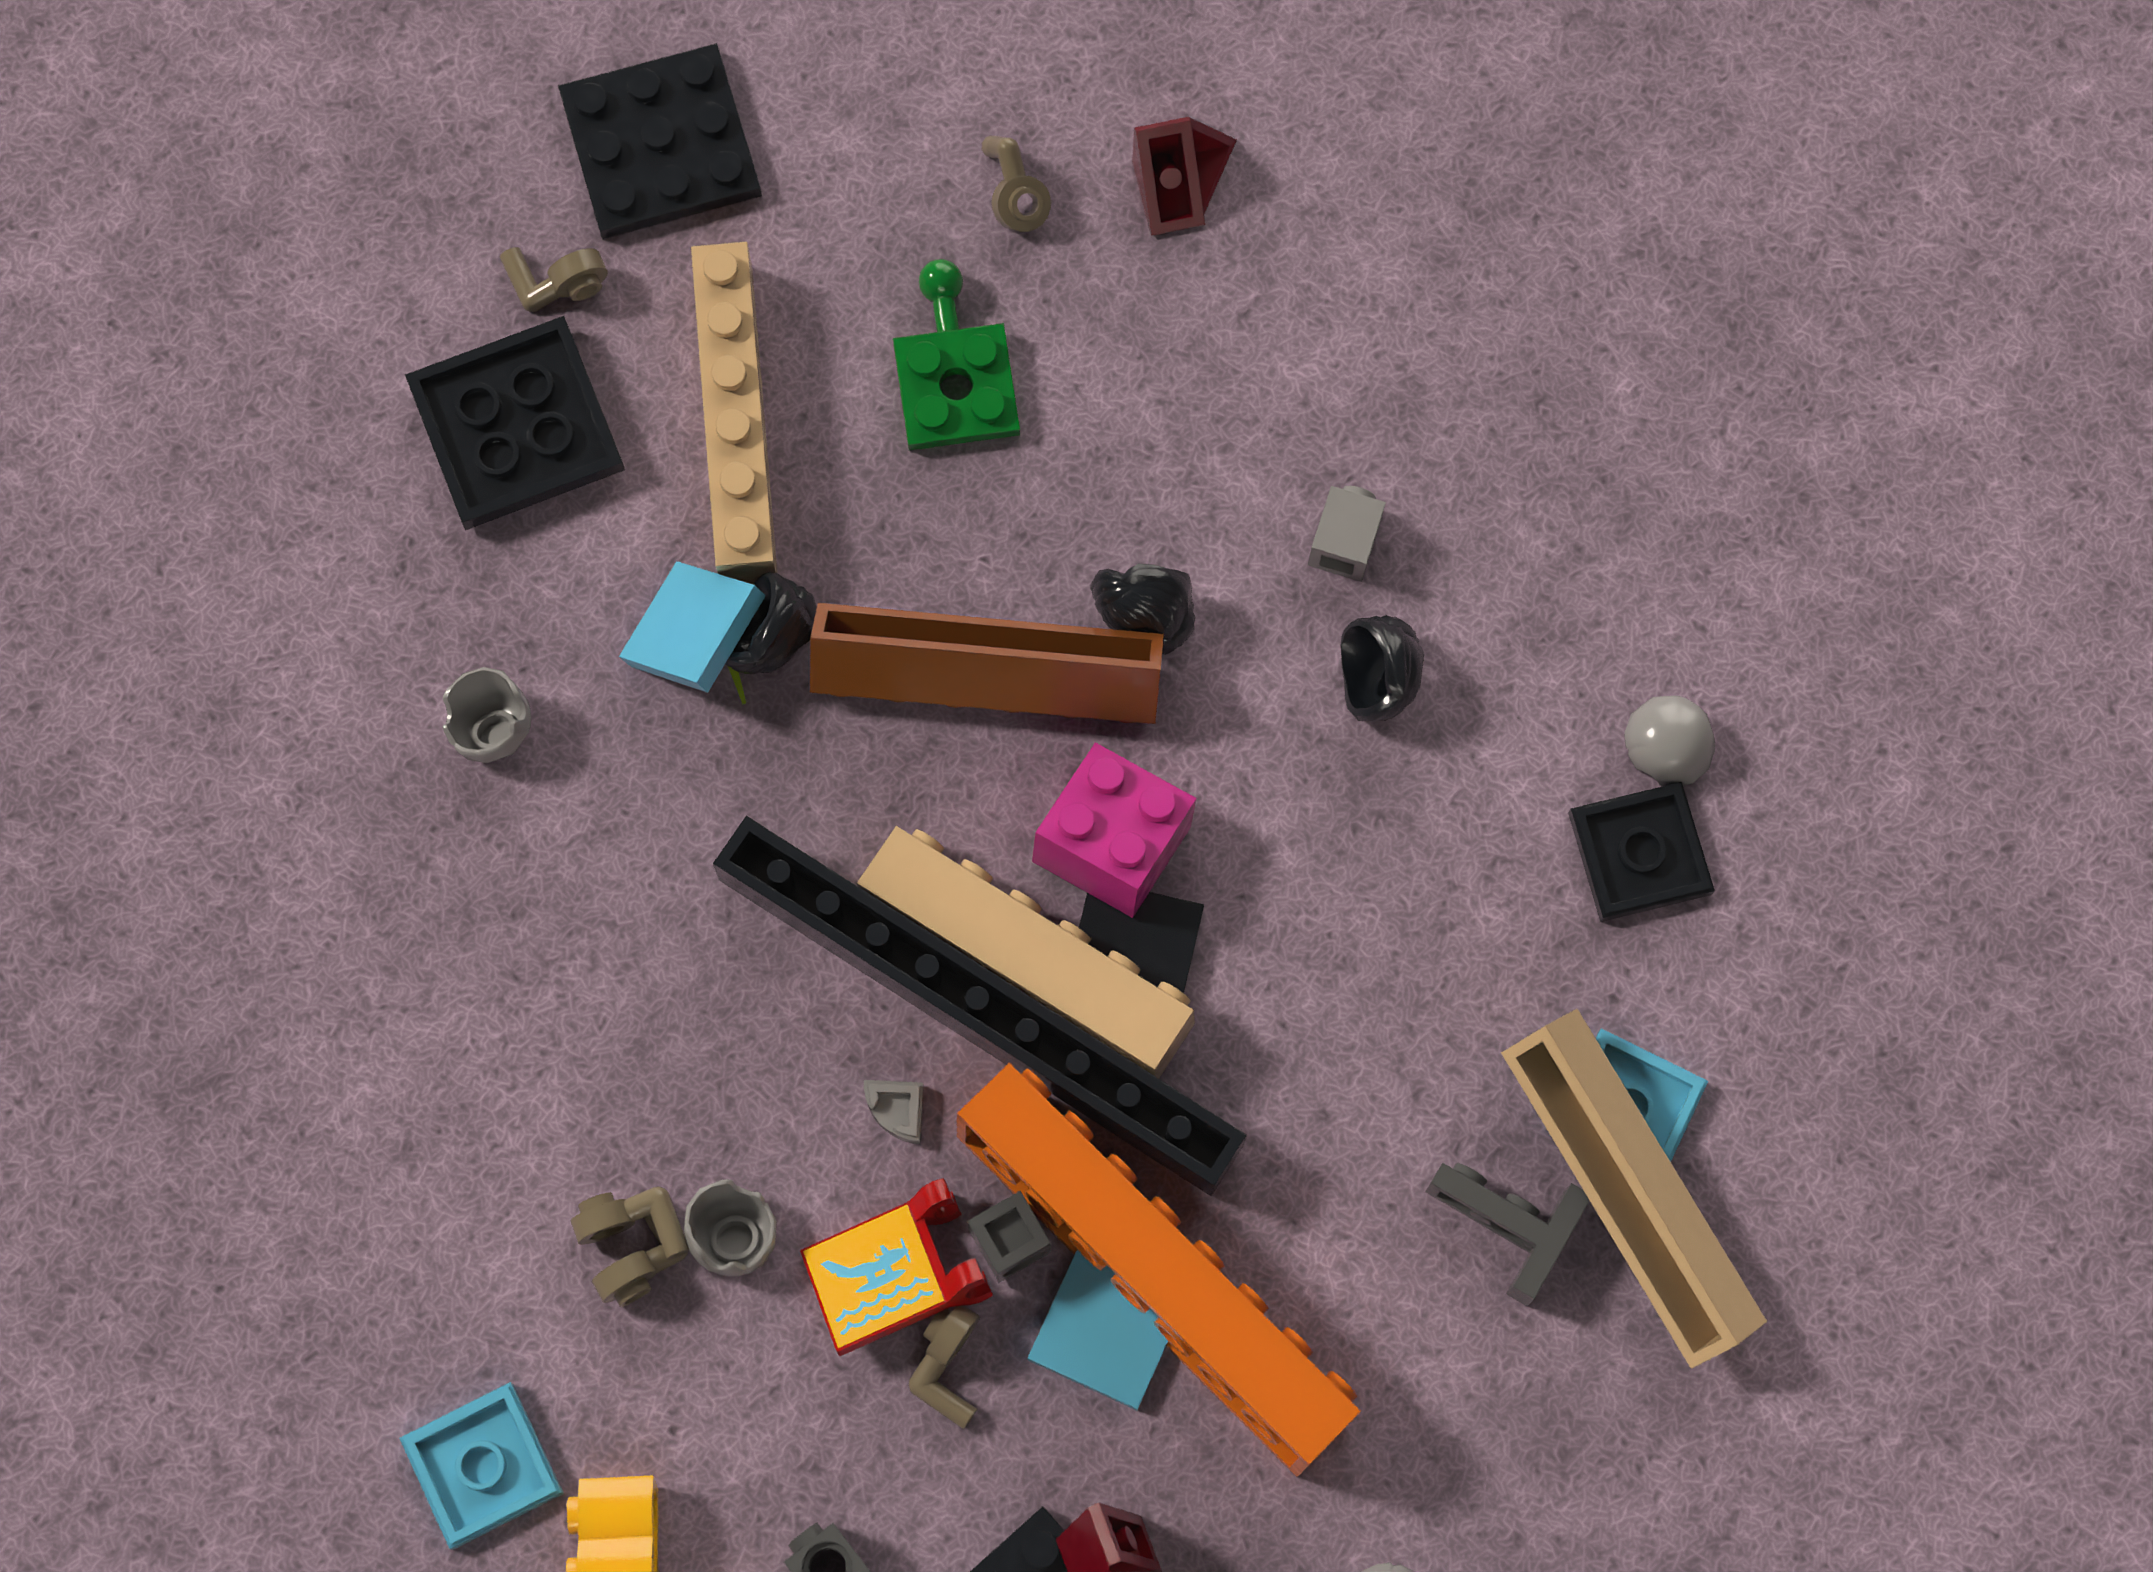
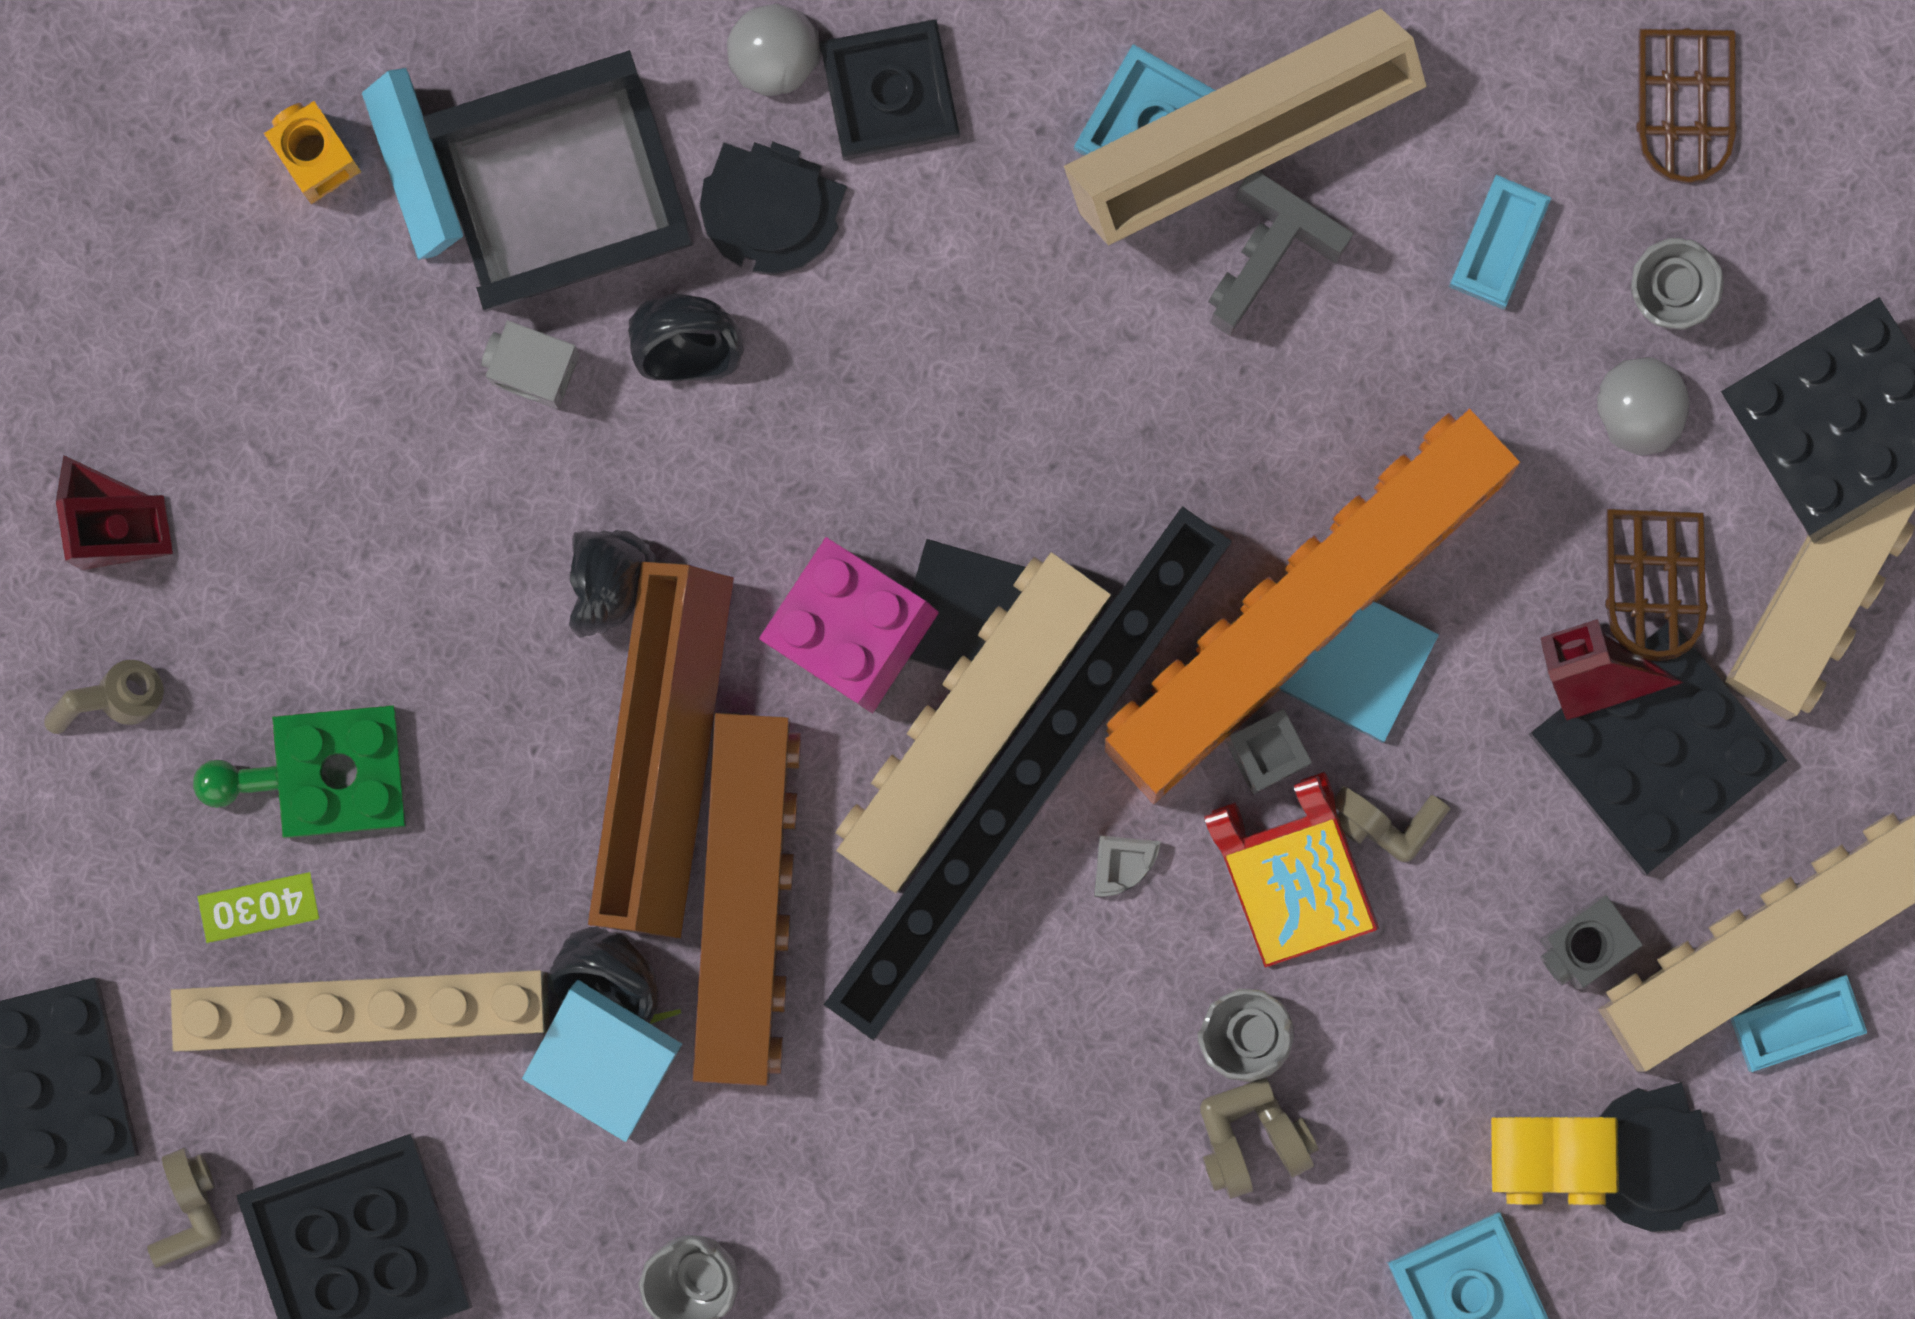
camera: 85 degrees left, 10 degrees up
(830, 327) = (258, 907): none -> lime sticker
(847, 750) = (743, 900): none -> dark orange brick
(1515, 746) = (769, 207): none -> black piece
(1526, 349) = (324, 172): none -> light orange brick
(1526, 552) = (559, 180): none -> clear piece
(1529, 417) = (412, 163): none -> medium azure tile
(1540, 1458) = (1500, 242): none -> medium azure tile

